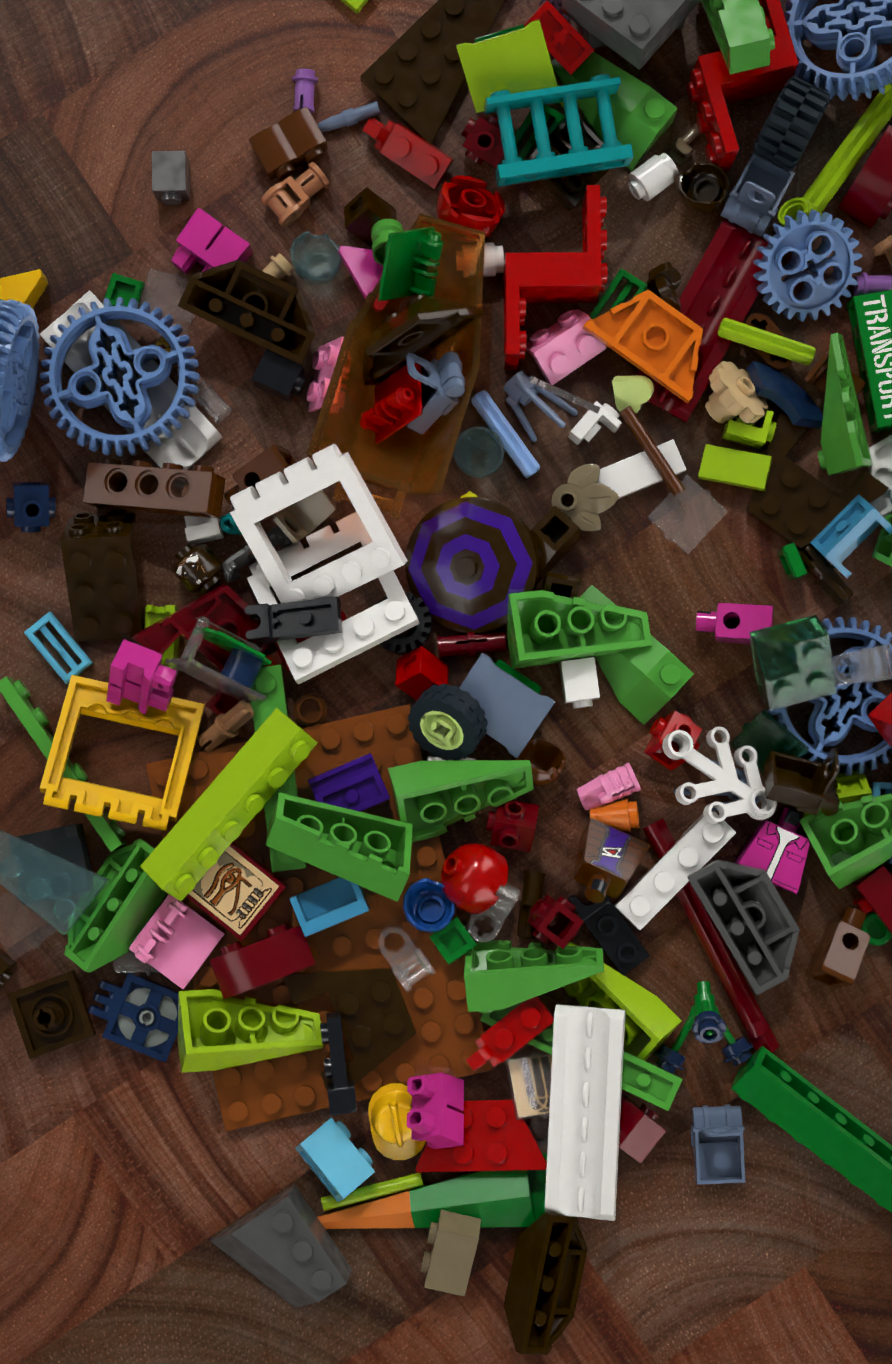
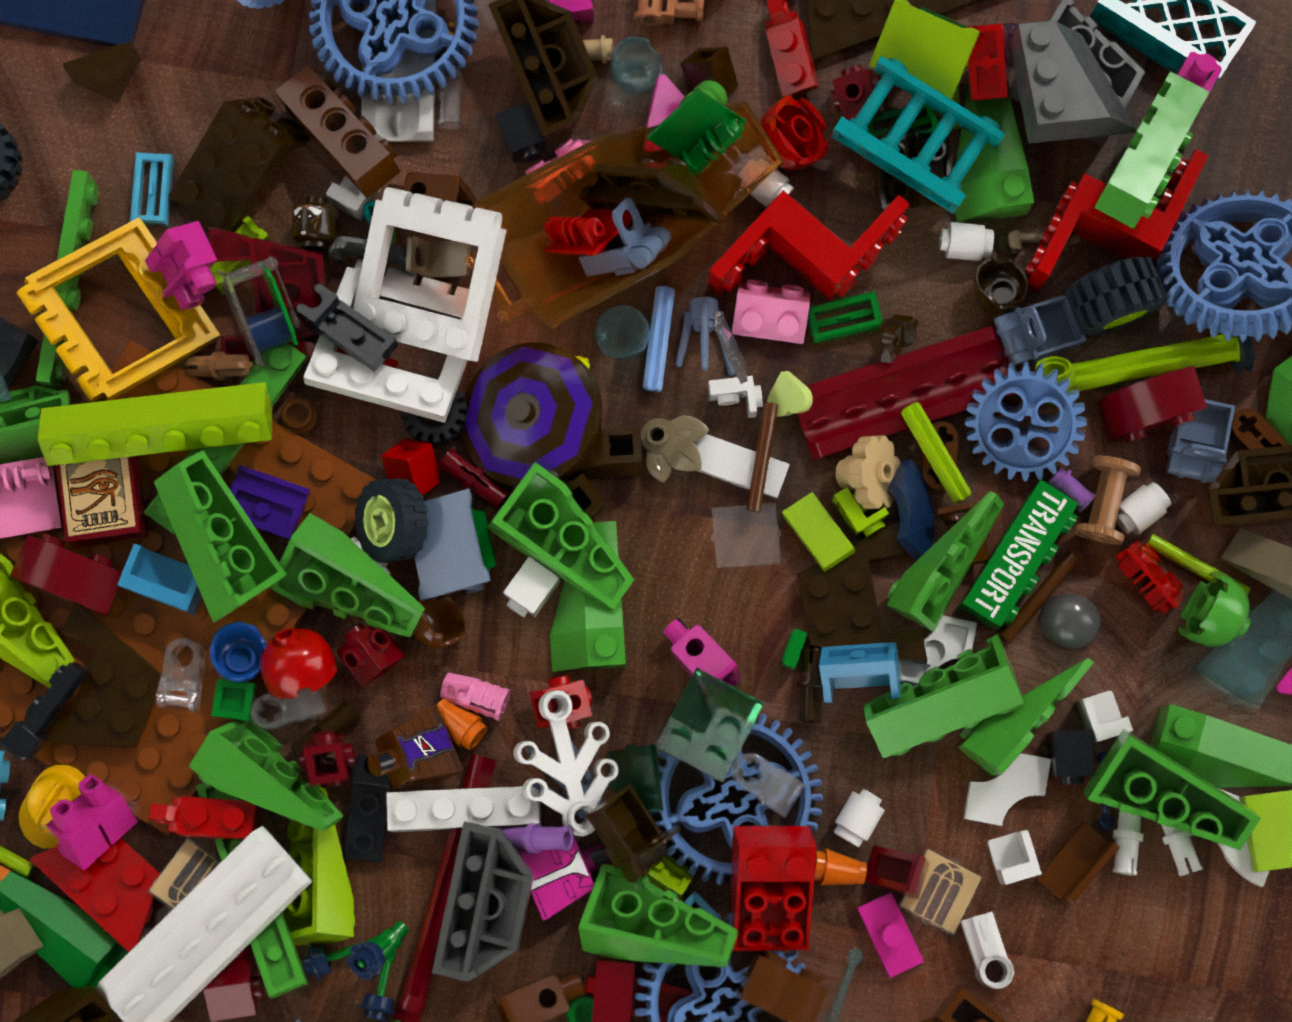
camera: 45 degrees right, 5 degrees down
(30, 493) = (245, 57): dark blue brick -> none
(653, 340) = (843, 368): orange wing -> none
(744, 843) = (537, 838): none -> medium lavender pin

